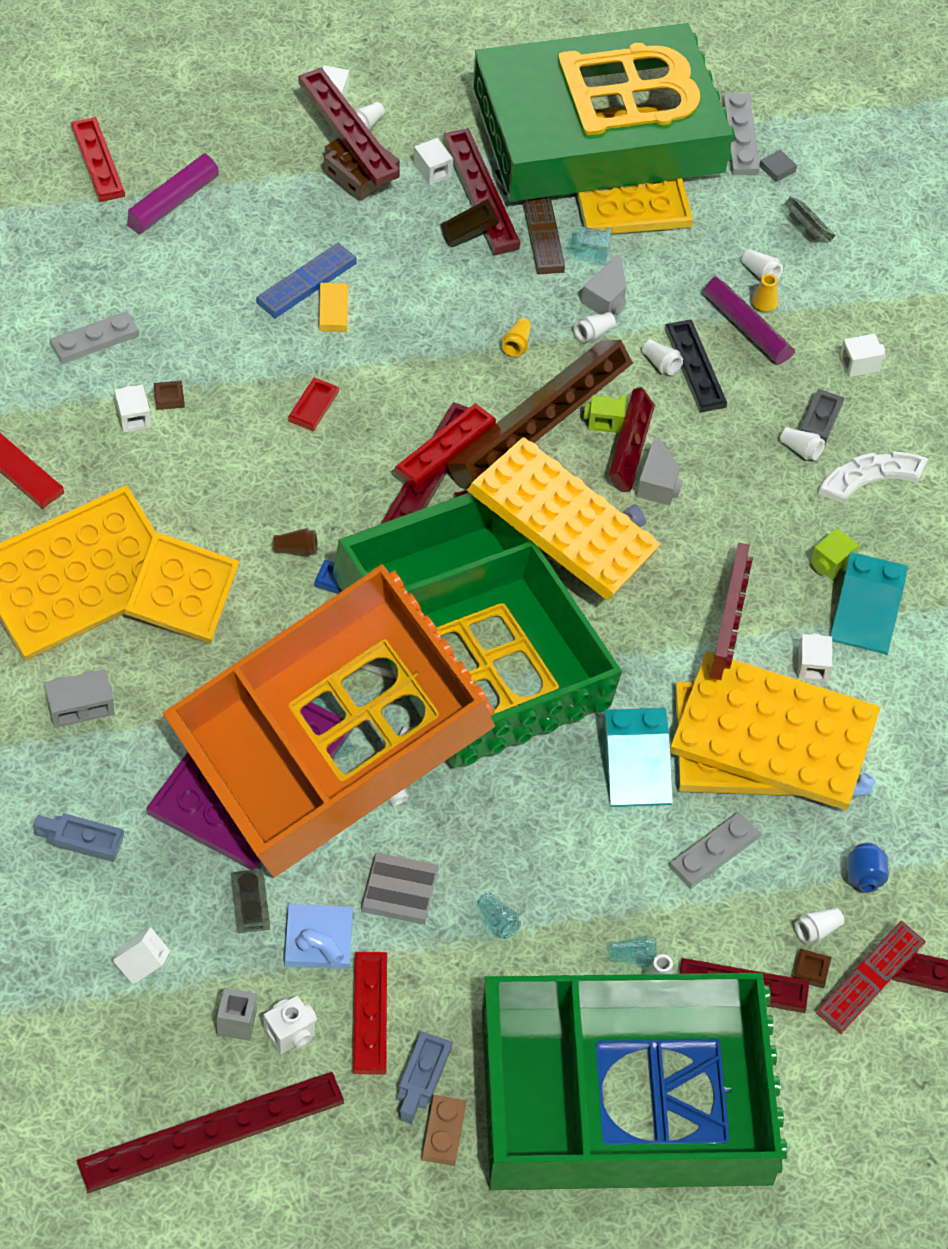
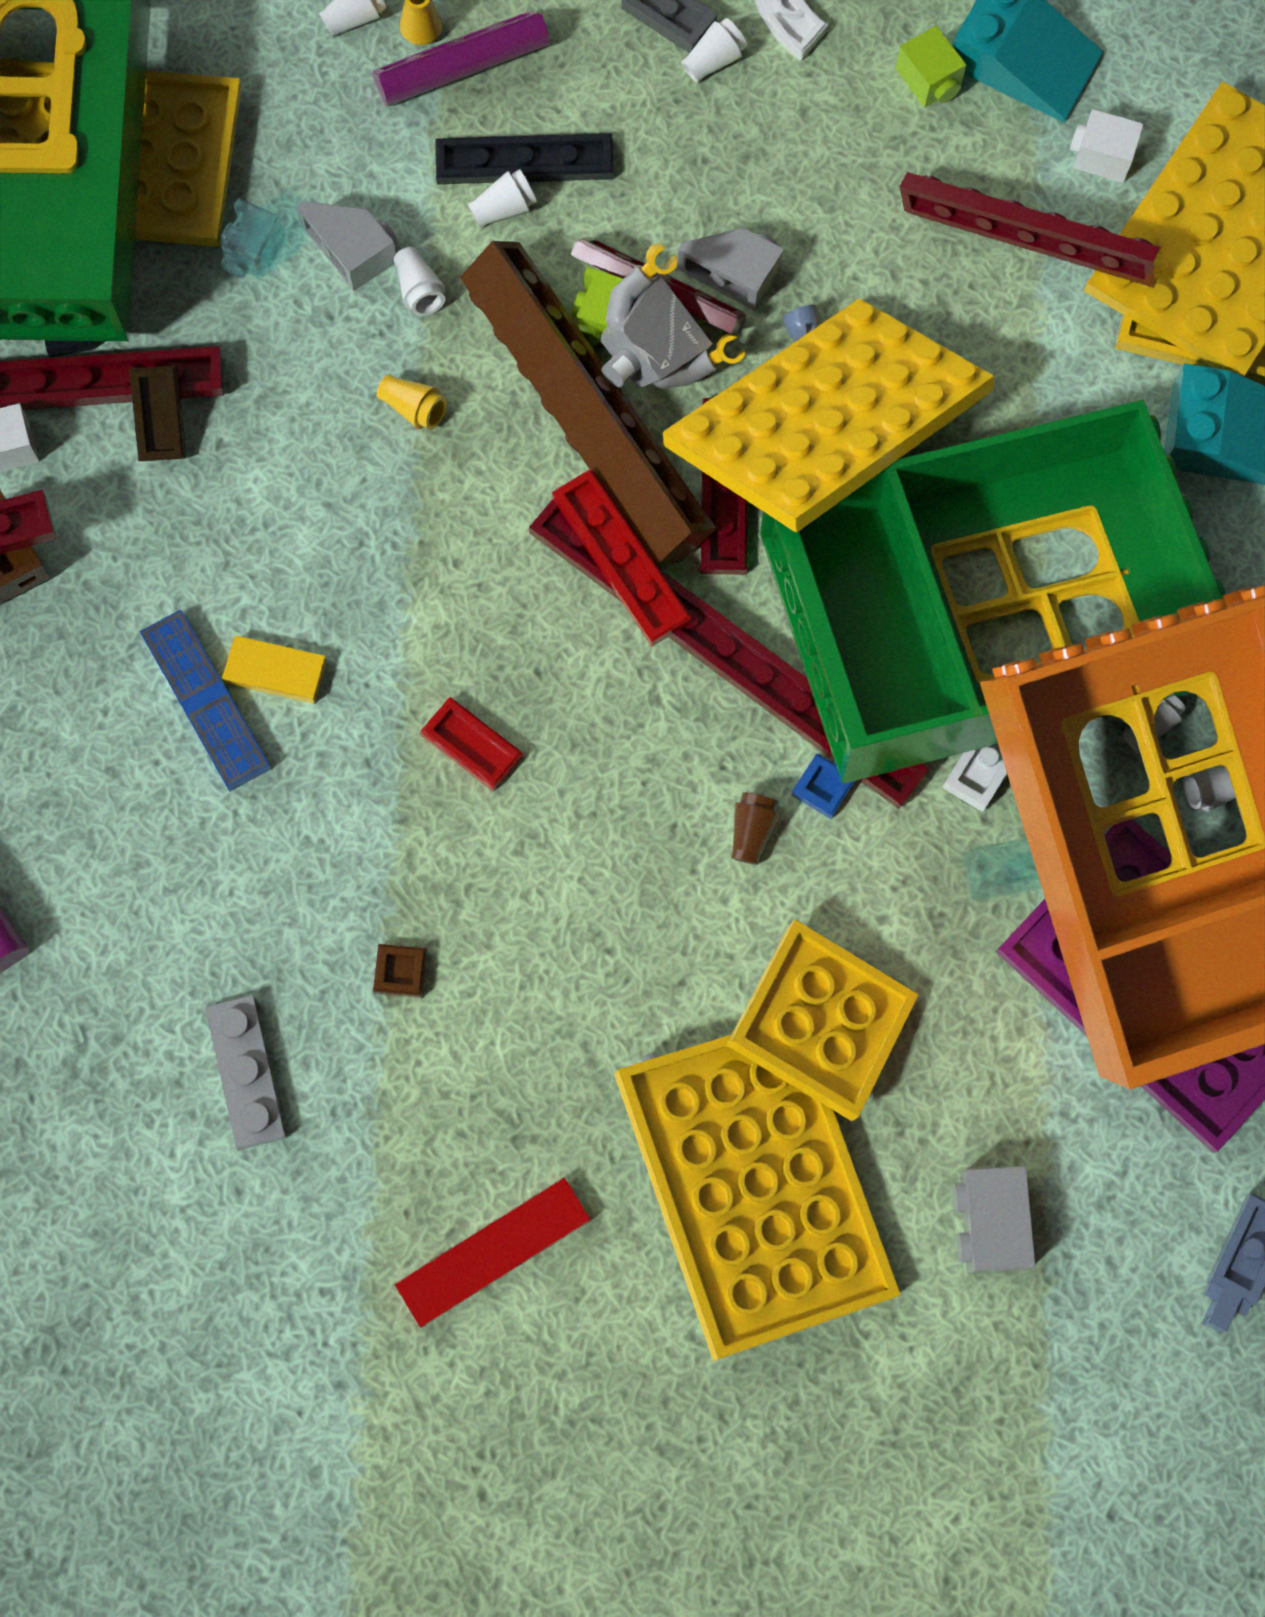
camera: 75 degrees left, 20 degrees up
(132, 408) = (424, 1034): white brick -> none
(544, 235) = (206, 309): reddish brown tile -> none
(592, 432) = (655, 334): none -> light grey torso

